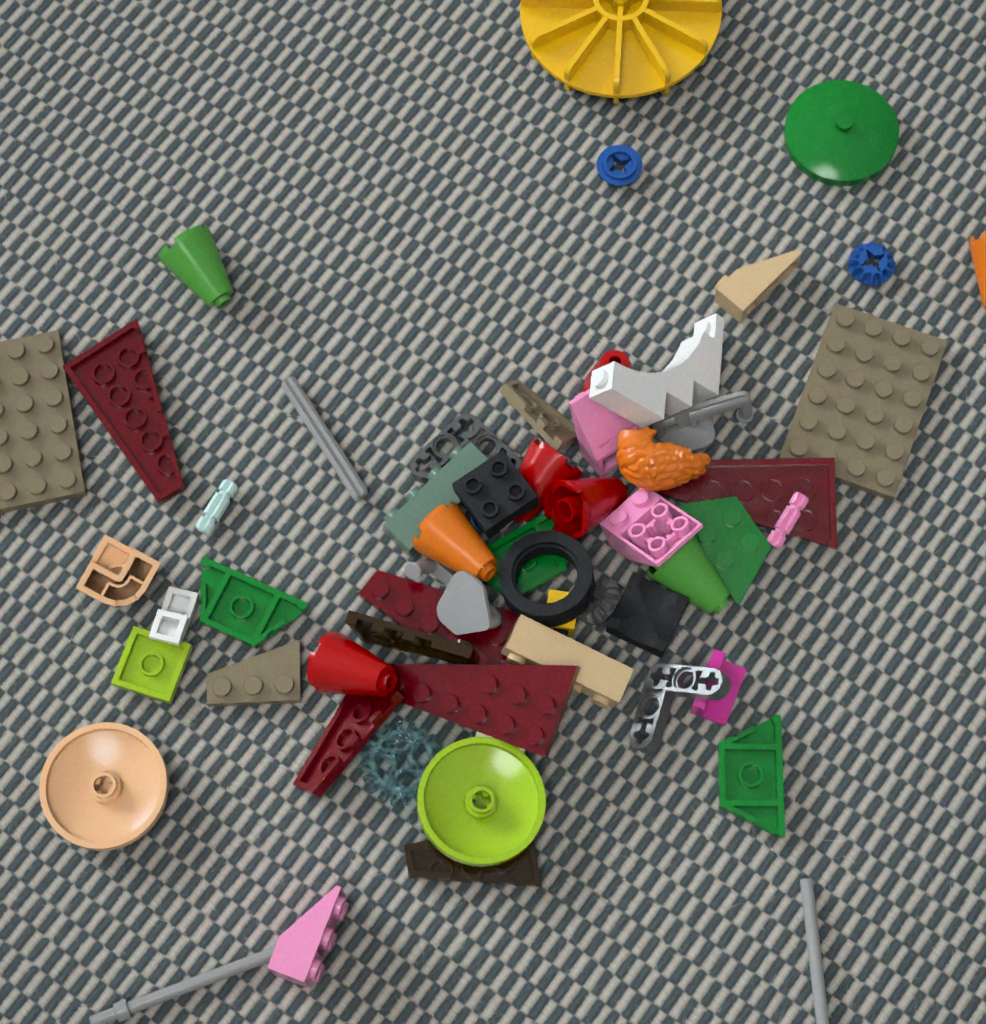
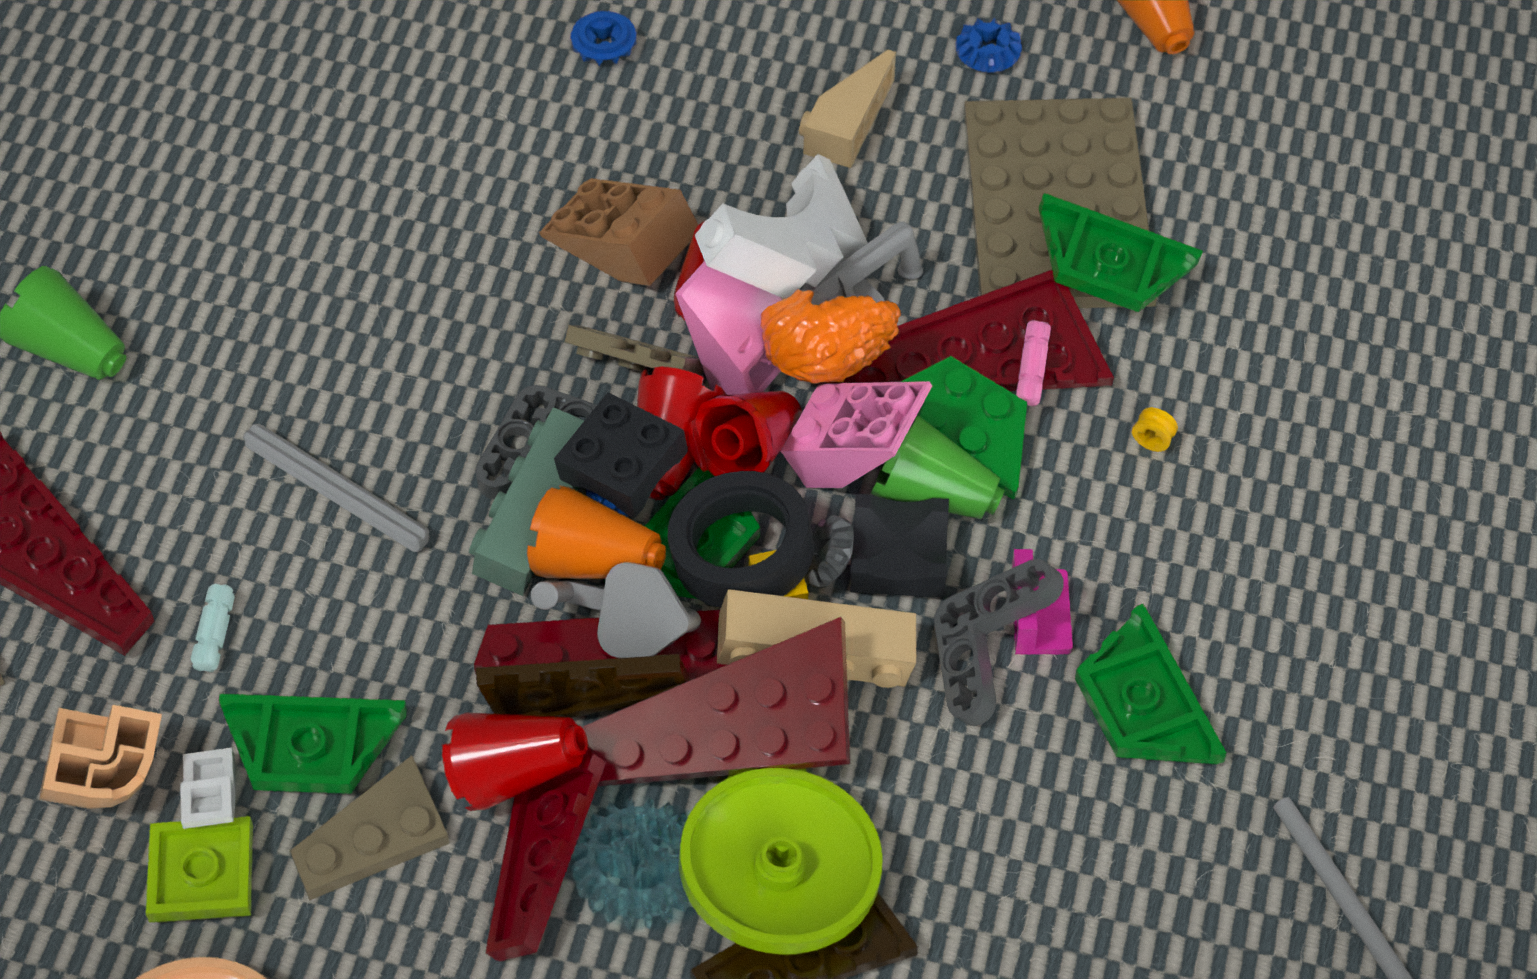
camera: 25 degrees left, 15 degrees down
(571, 318) = (623, 228): none -> medium nougat slope
(846, 594) = (1154, 429): none -> yellow bush
(872, 462) = (1110, 255): none -> green wing

